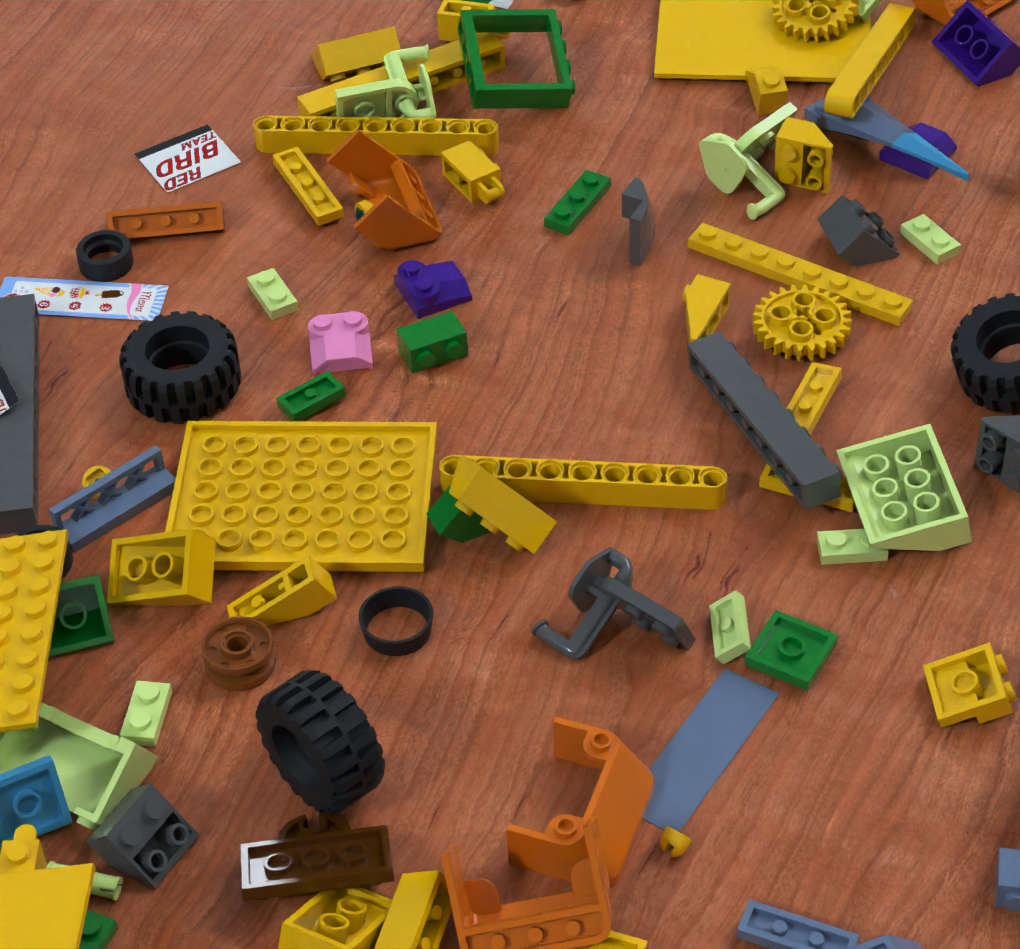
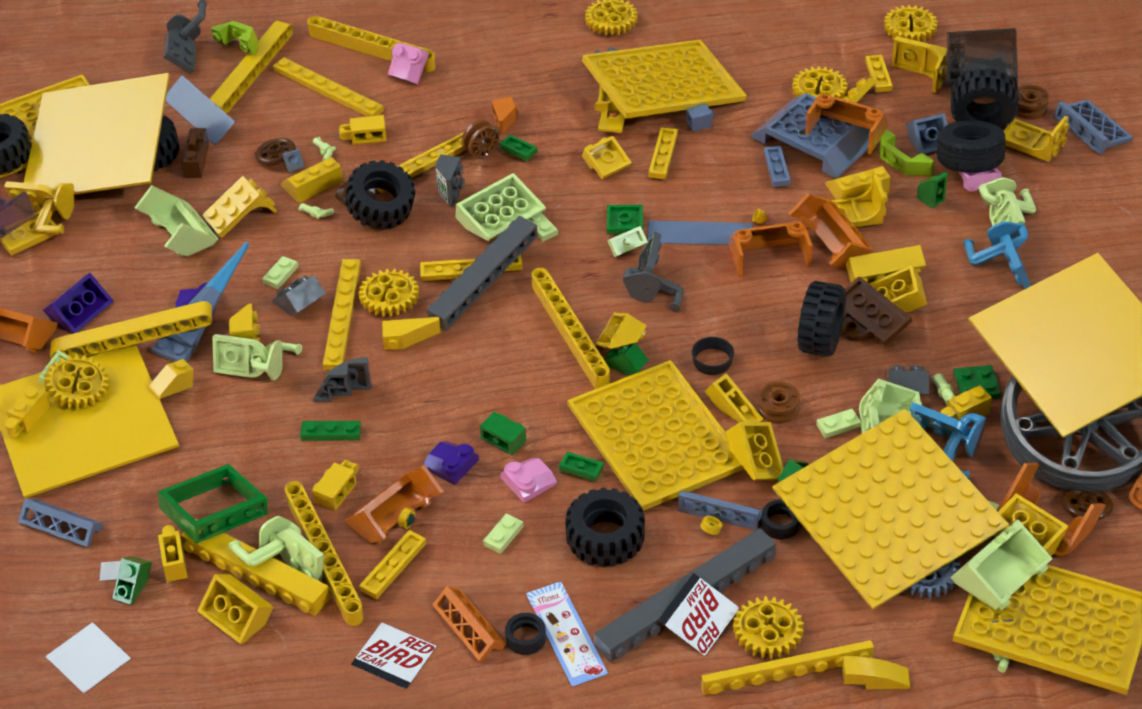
camera: 120 degrees left, 0 degrees up
(942, 780) = (663, 153): none -> yellow plate

